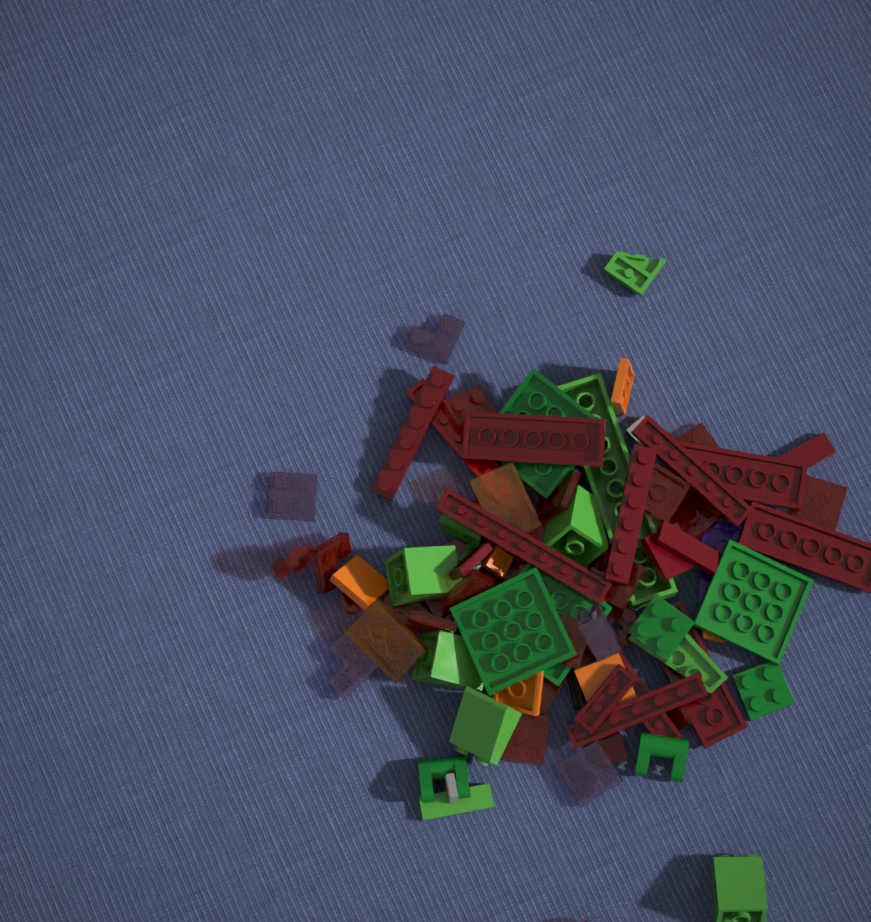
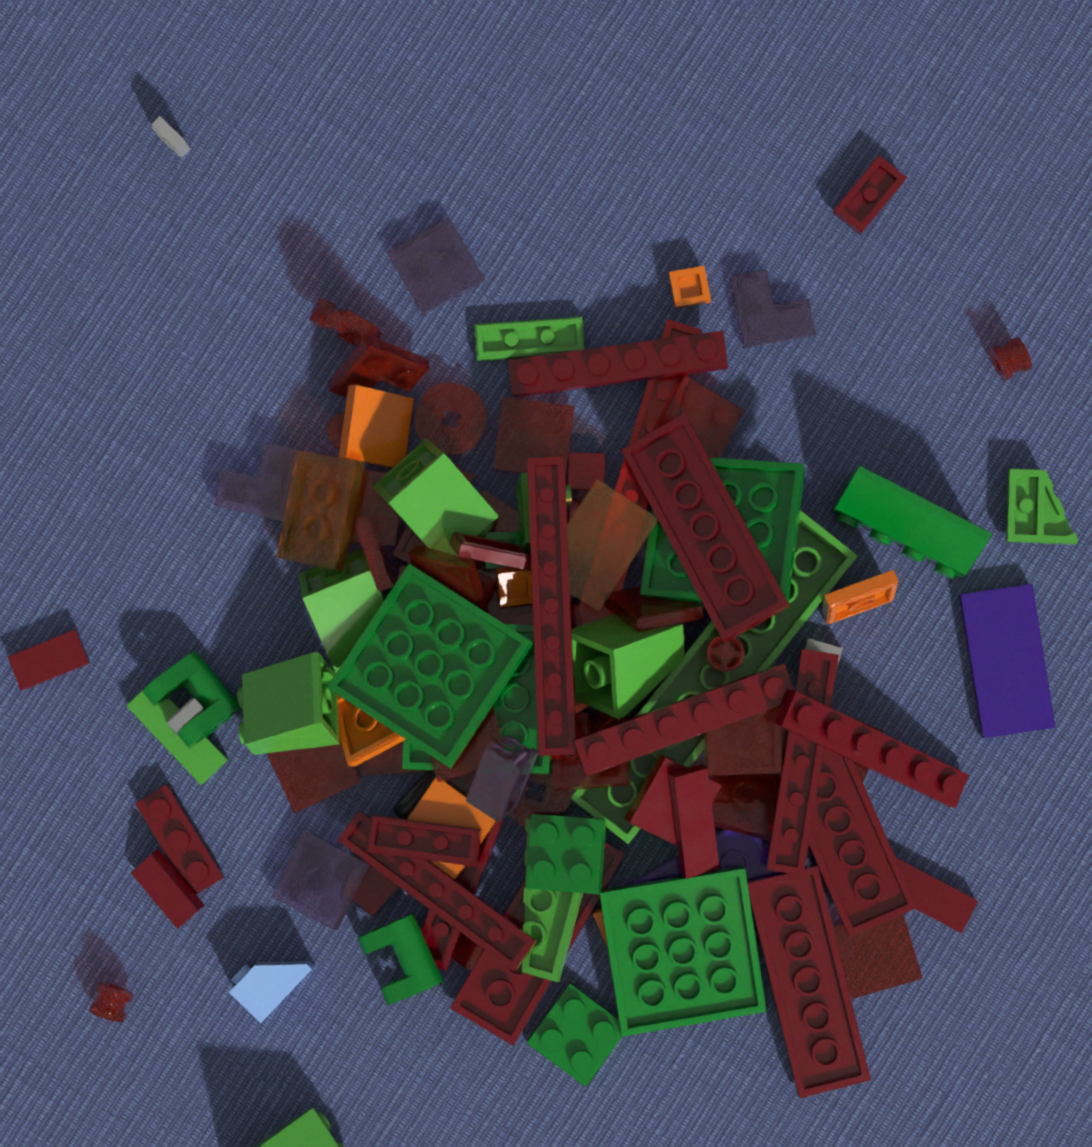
camera: 60 degrees right, 10 degrees up
(124, 591) = (170, 137): none -> light grey tile
(365, 472) = (528, 338): none -> bright green tile
(368, 847) = (49, 660): none -> dark red tile
(374, 530) = (456, 399): none -> clear red plate
(395, 370) = (689, 287): none -> orange plate
(409, 246) = (869, 195): none -> dark red plate
(418, 503) = (531, 431): none -> clear red plate
(459, 485) = (585, 469): none -> dark red tile
(517, 839) = (179, 839): none -> dark red plate
(540, 862) = (167, 889): none -> dark red tile
(545, 231) = (1010, 358): none -> clear red wheel
(599, 336) = (910, 523): none -> green slope
(611, 469) = (731, 654): none -> clear red wheel
(629, 840) = (267, 984): none -> light blue slope
(705, 336) = (1007, 661): none -> dark purple tile
(708, 431) = (871, 749): none -> dark red plate

